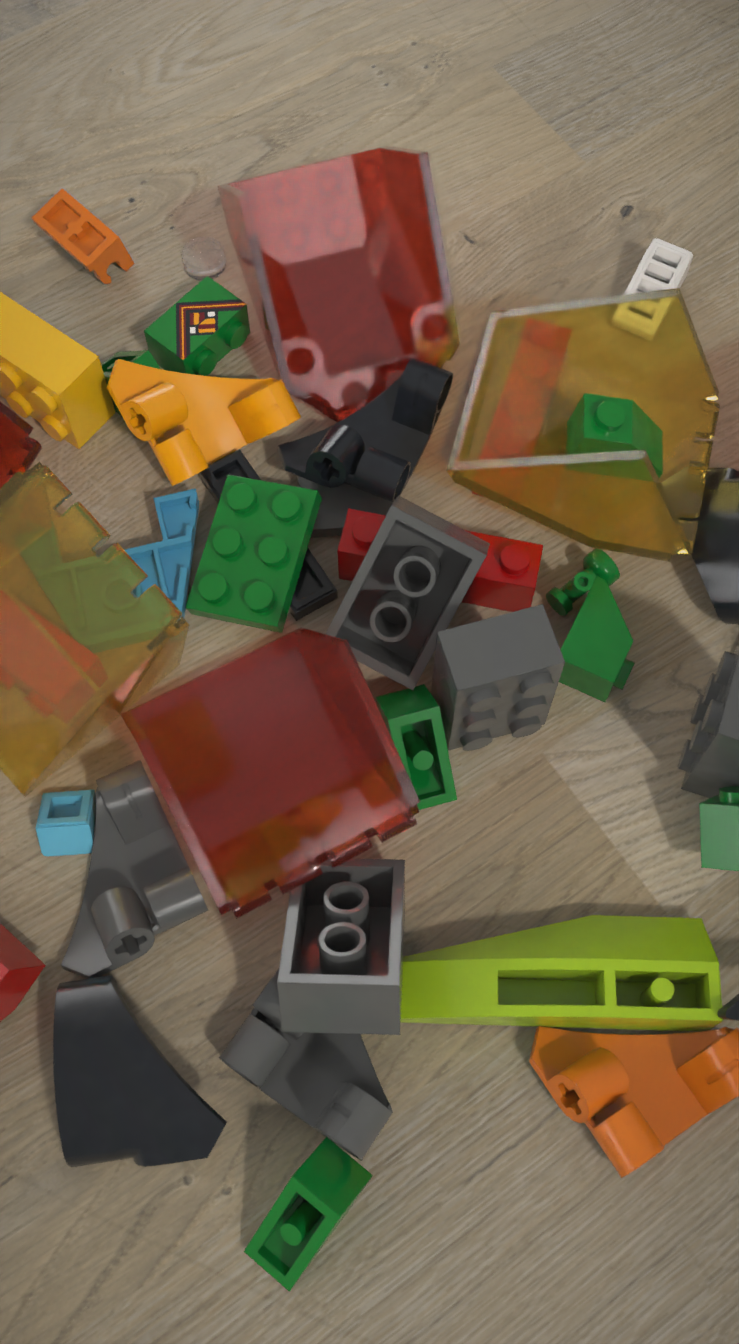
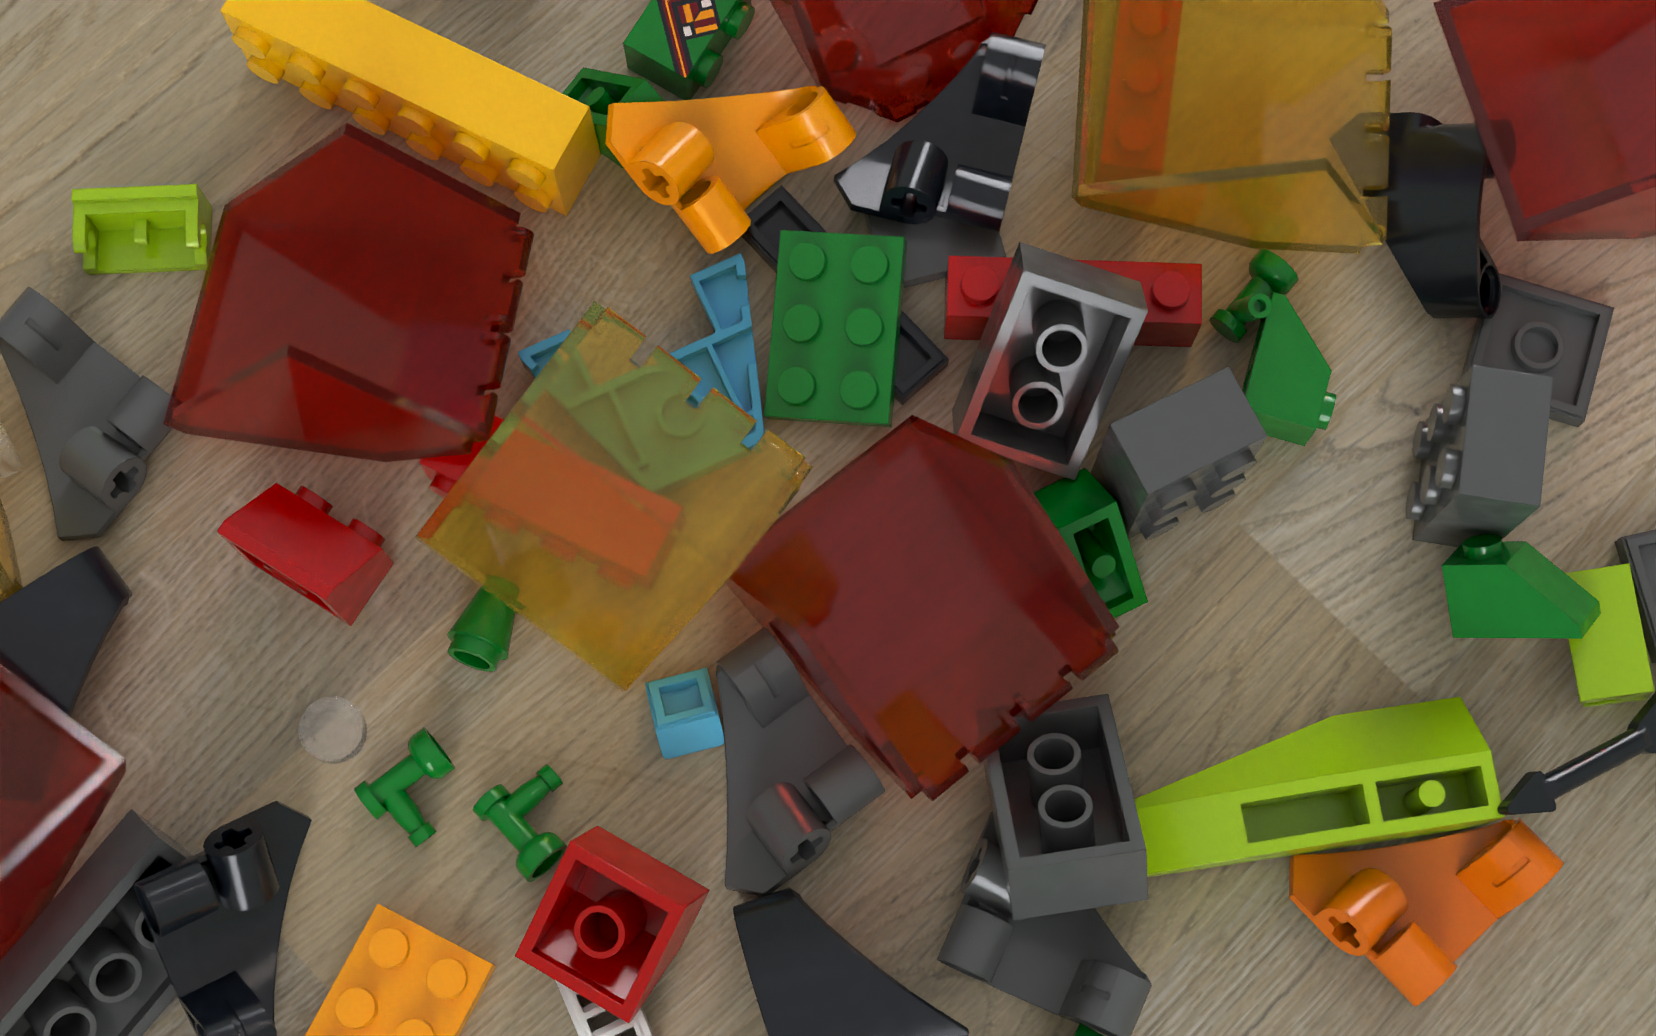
camera: 10 degrees left, 10 degrees up
(613, 426) = (1267, 105): green slope -> none

